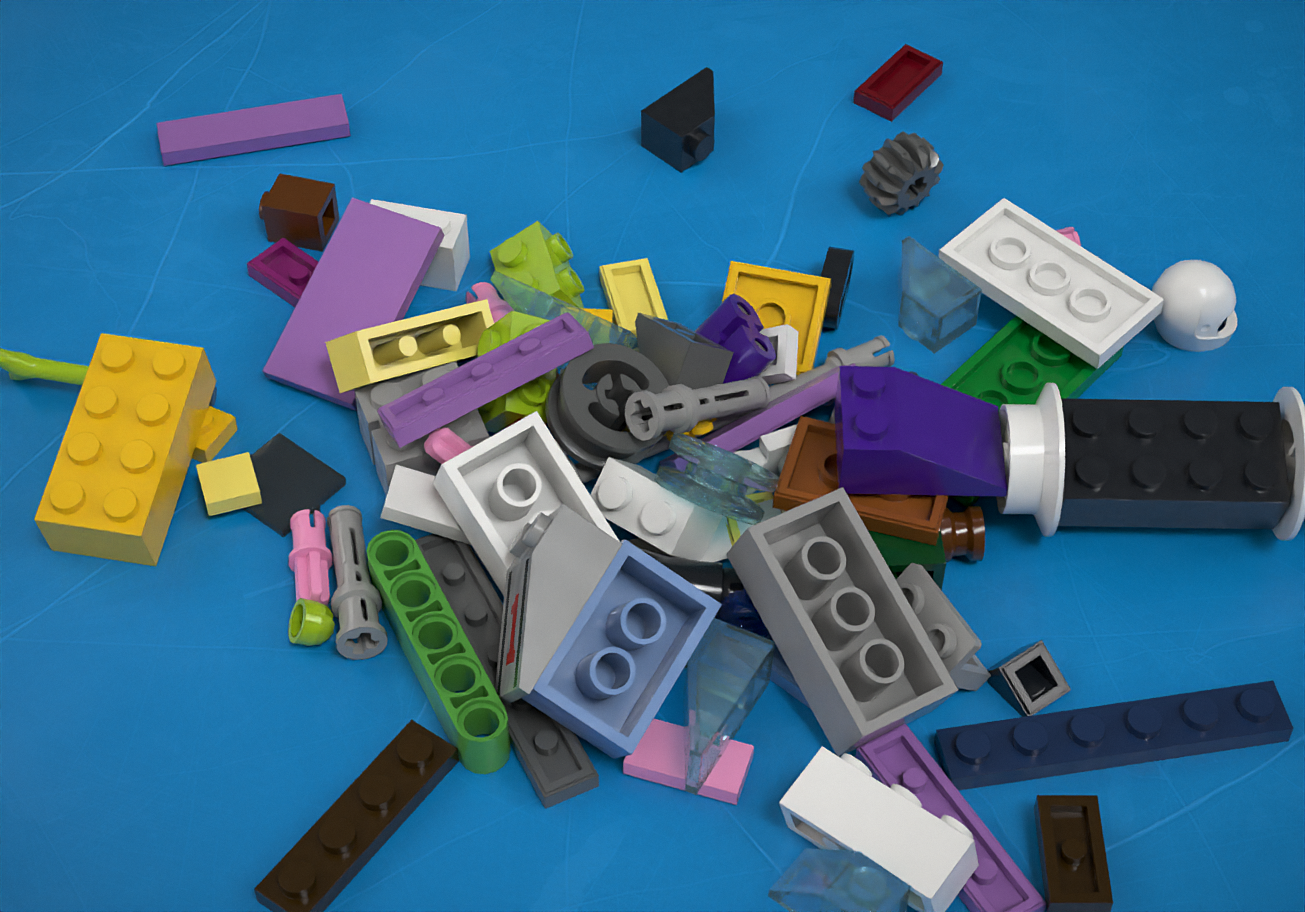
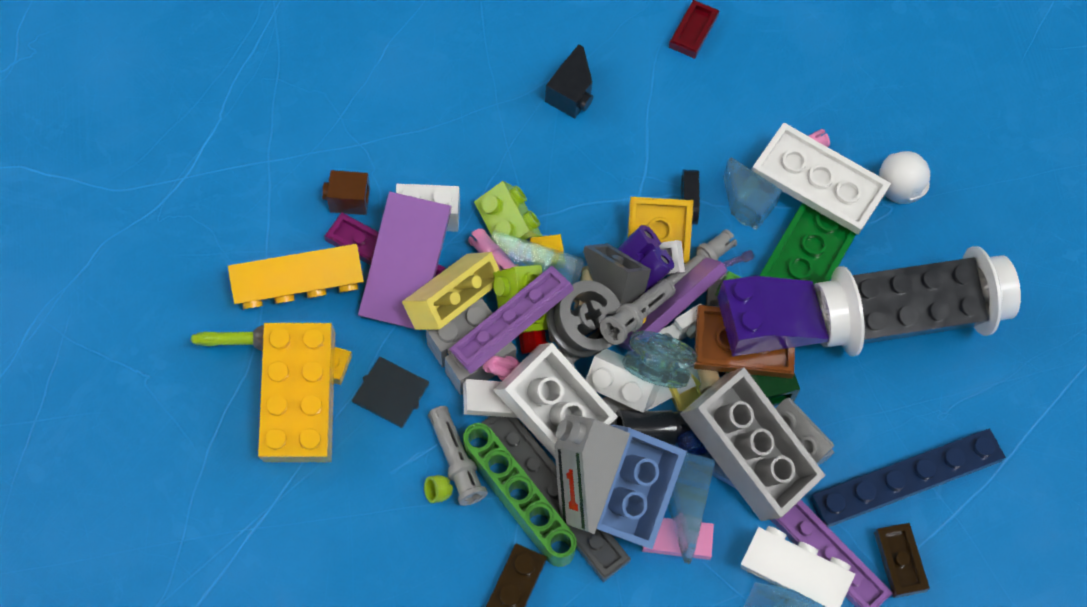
camera: 15 degrees left, 15 degrees up
(183, 300) = (295, 274): none -> yellow brick
(229, 484) = (362, 401): light yellow tile -> none
(253, 129) = (296, 128): medium lavender tile -> none
(310, 557) = (426, 444): bright pink axle -> none
(631, 291) = (570, 223): light yellow tile -> none
(901, 173) = (715, 107): dark grey gear -> none
(964, 534) = (805, 361): reddish brown wheel -> none
(1028, 679) = (854, 449): black slope -> none

